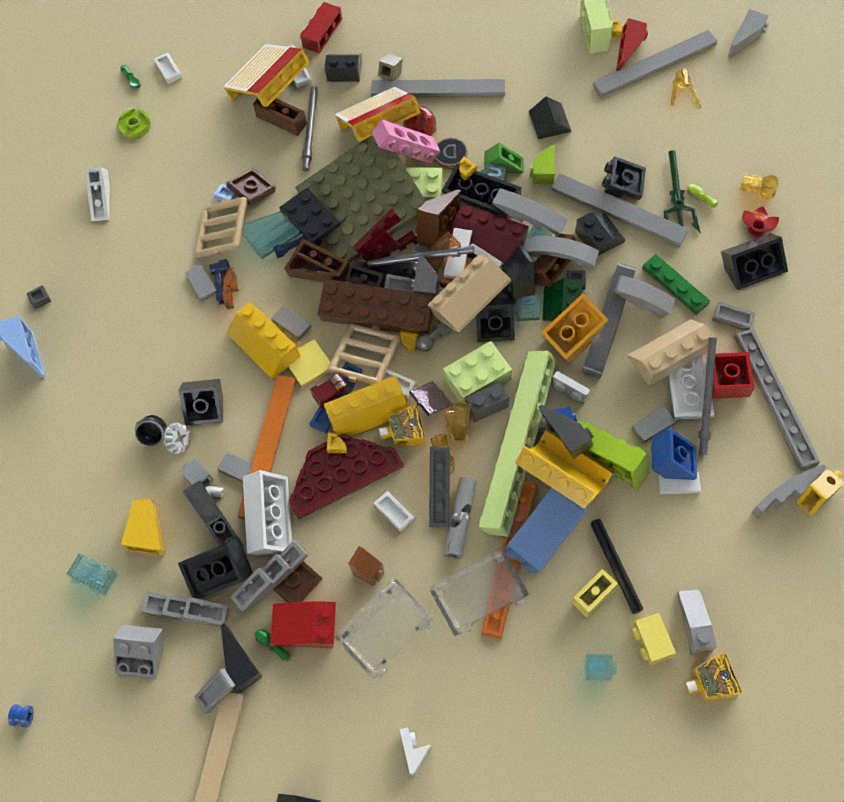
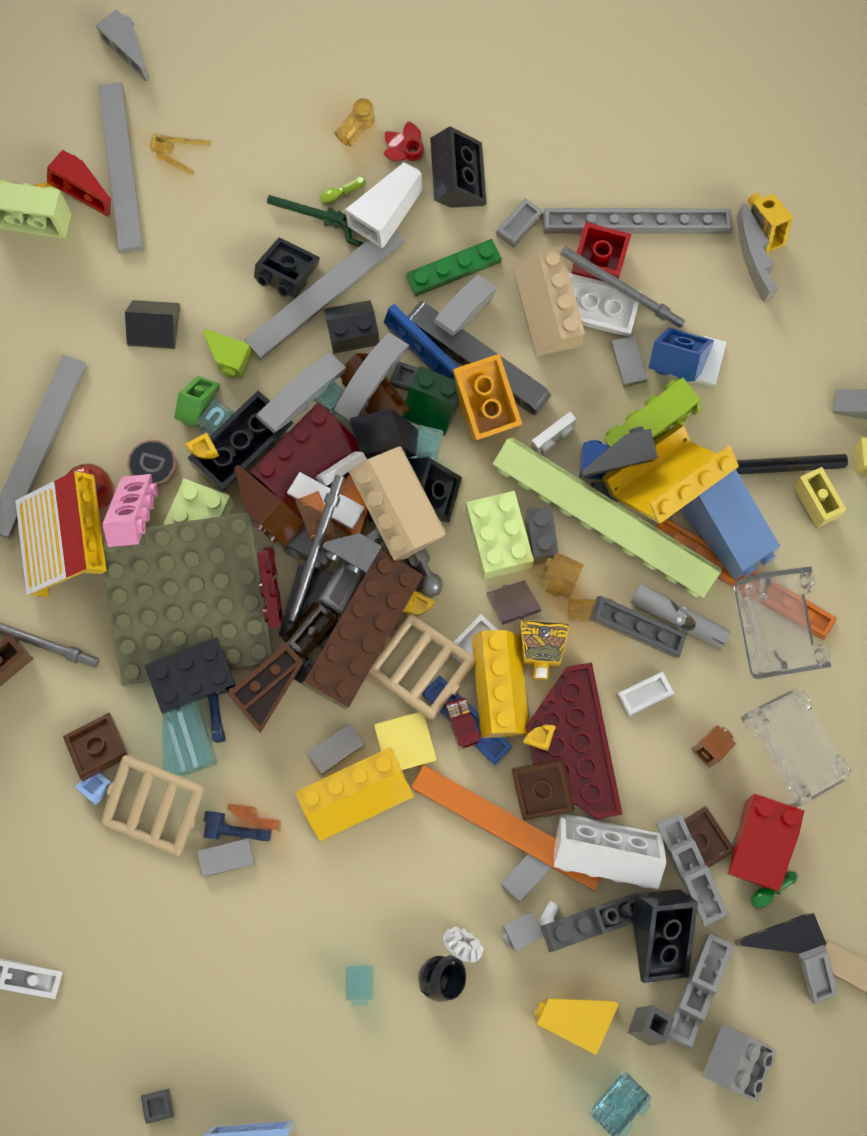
camera: 80 degrees left, 10 degrees up
(137, 384) = (360, 984): none -> clear light blue brick
(149, 577) = (651, 1025): none -> dark grey brick
(201, 401) = (416, 898): black slope -> none
(299, 458) = (543, 789): none -> reddish brown tile
(605, 275) = (419, 342): none -> blue tile
(701, 221) = (385, 205): none -> white slope

